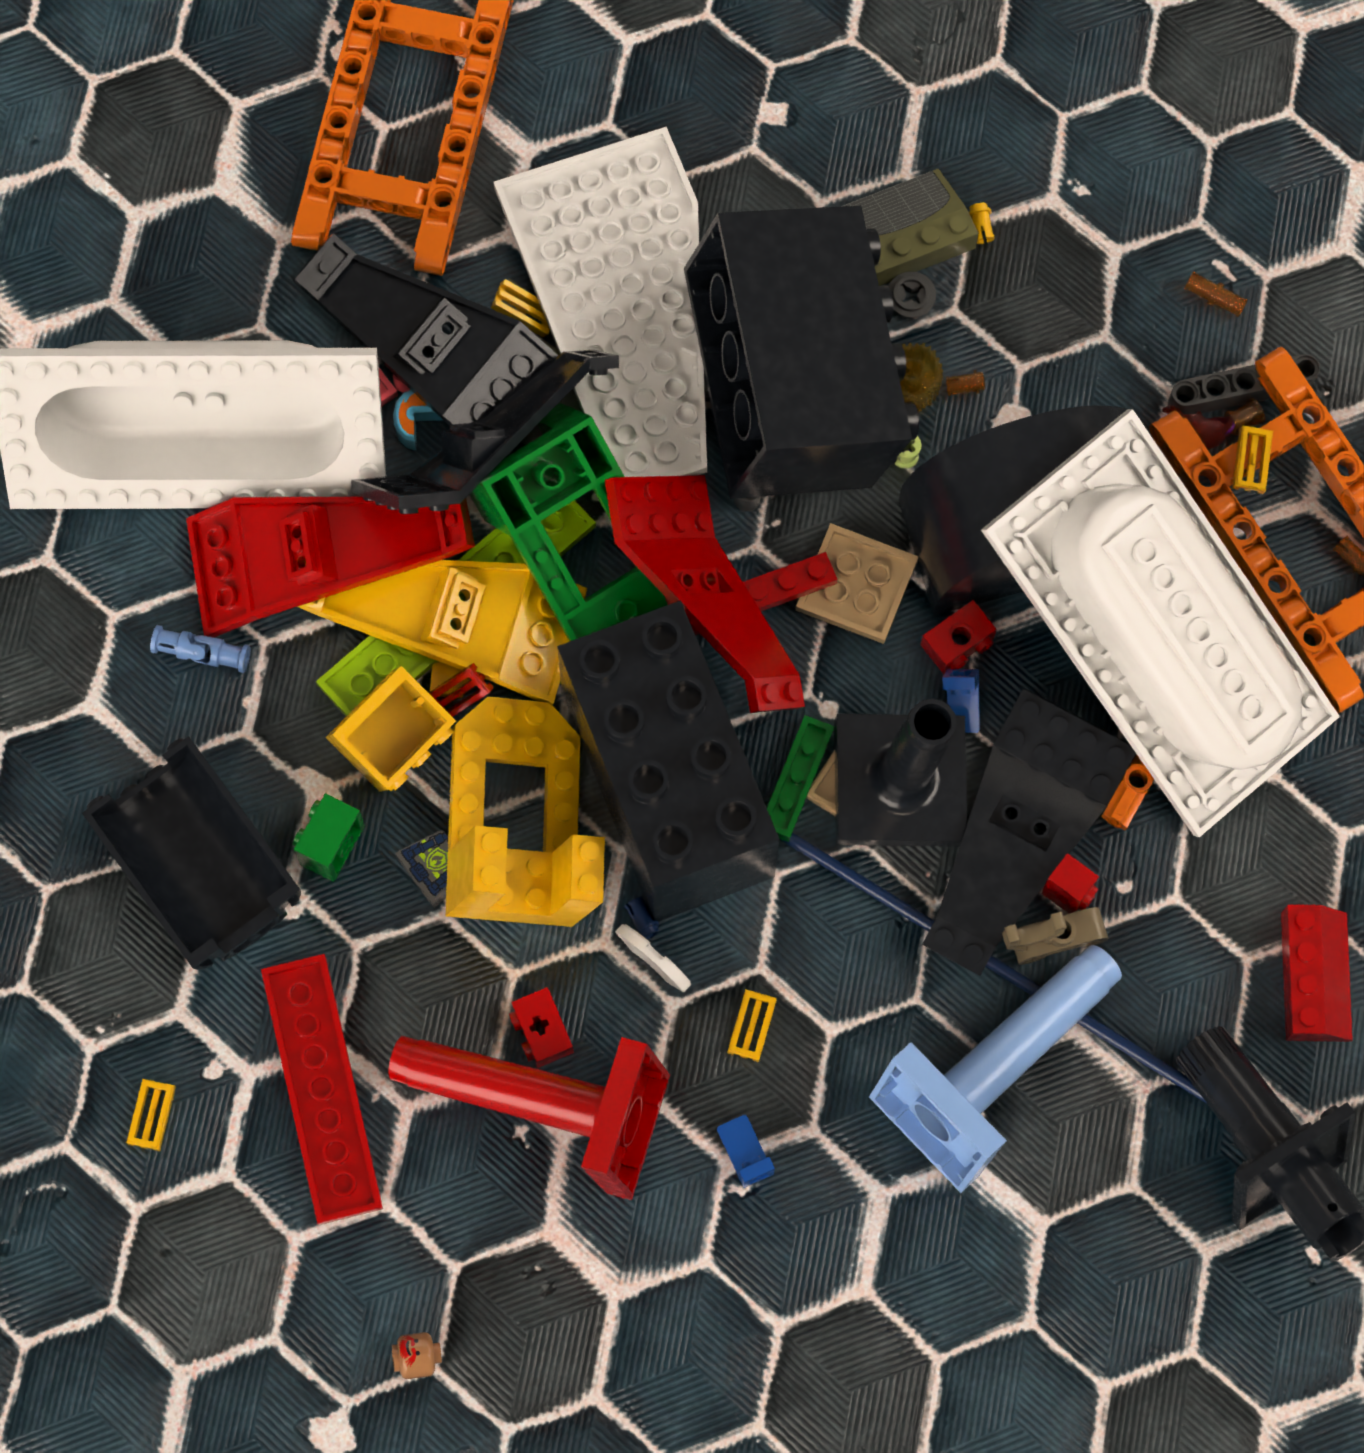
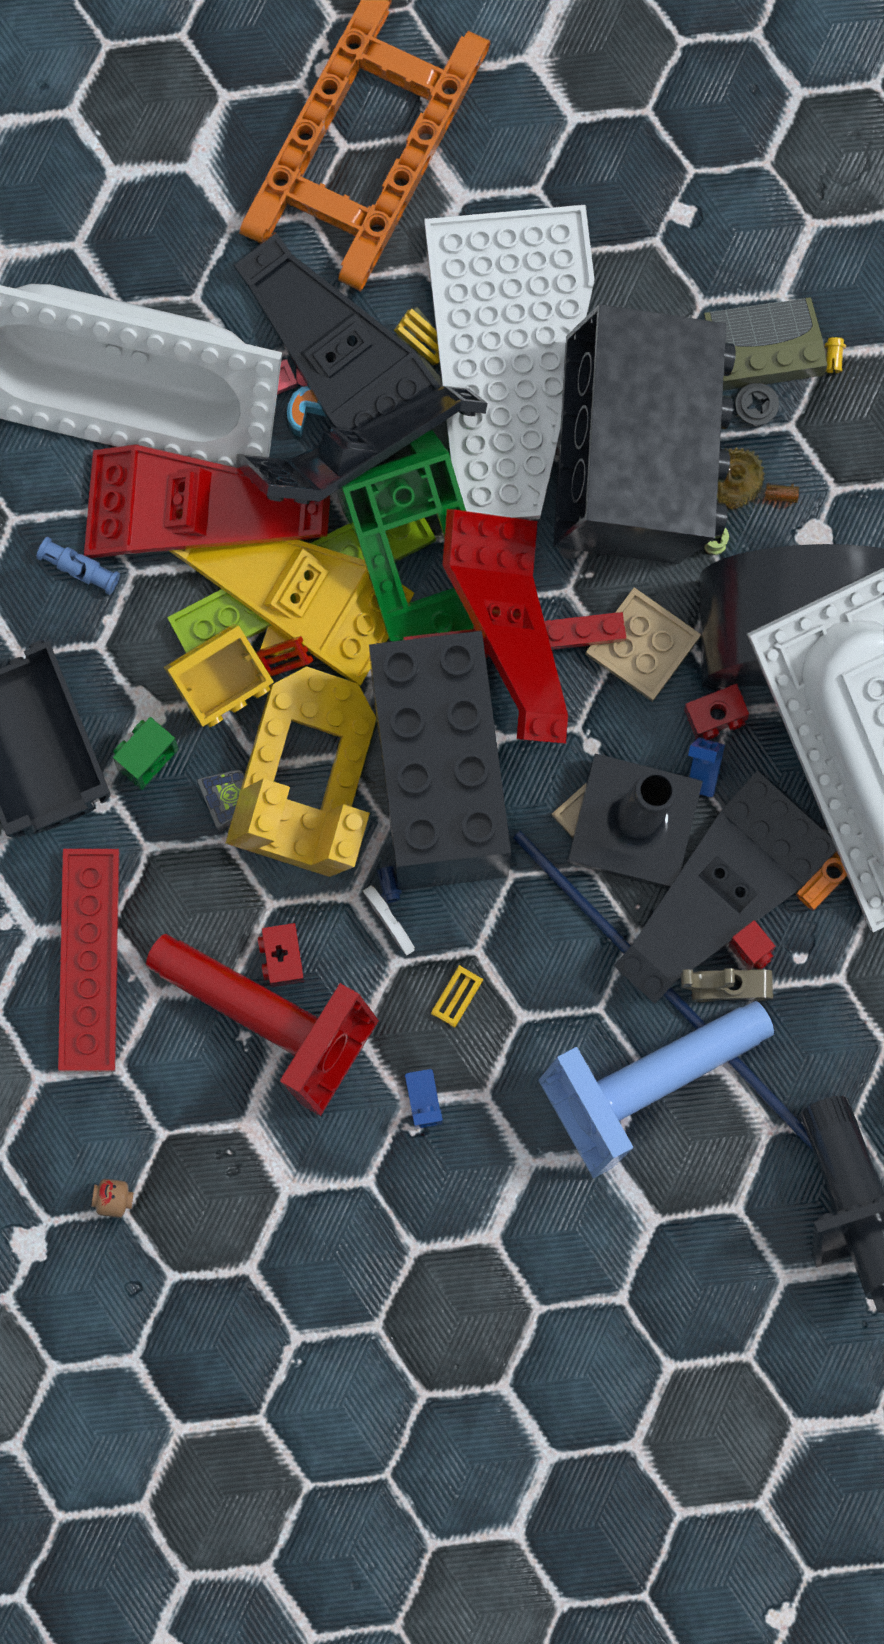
camera: 15 degrees right, 5 degrees up
(798, 775) = (548, 798): green plate -> none

